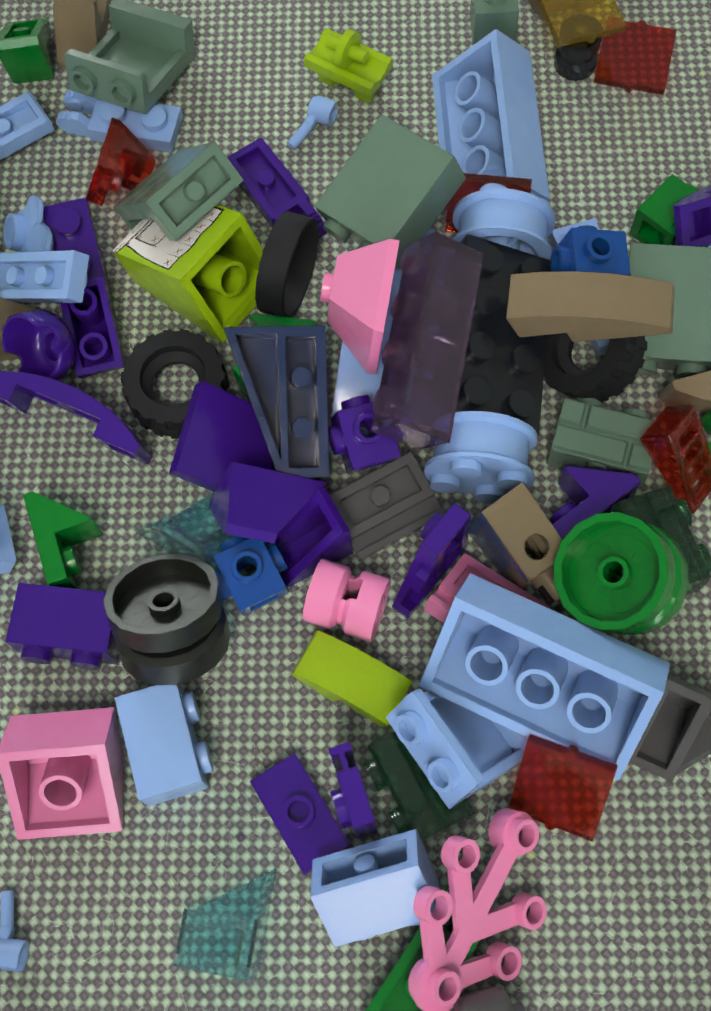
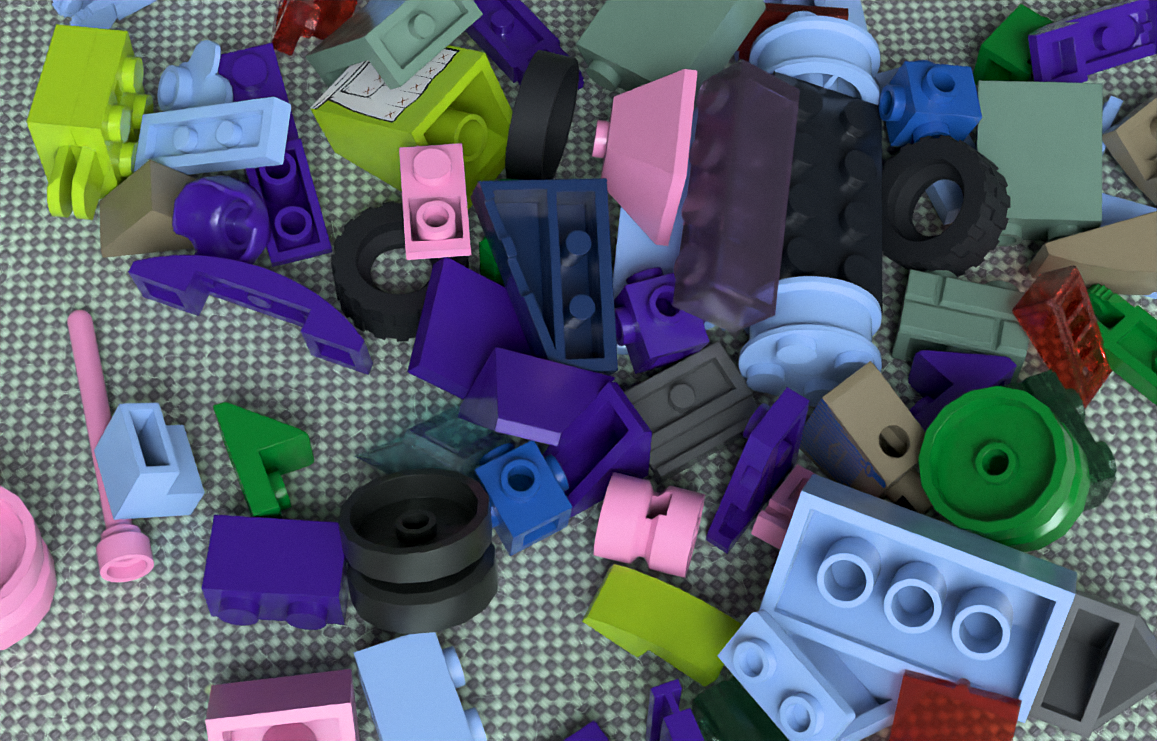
camera: 10 degrees left, 10 degrees down
(196, 338) = (434, 201): none -> bright pink slope
(589, 305) = (936, 148): dark tan slope -> none

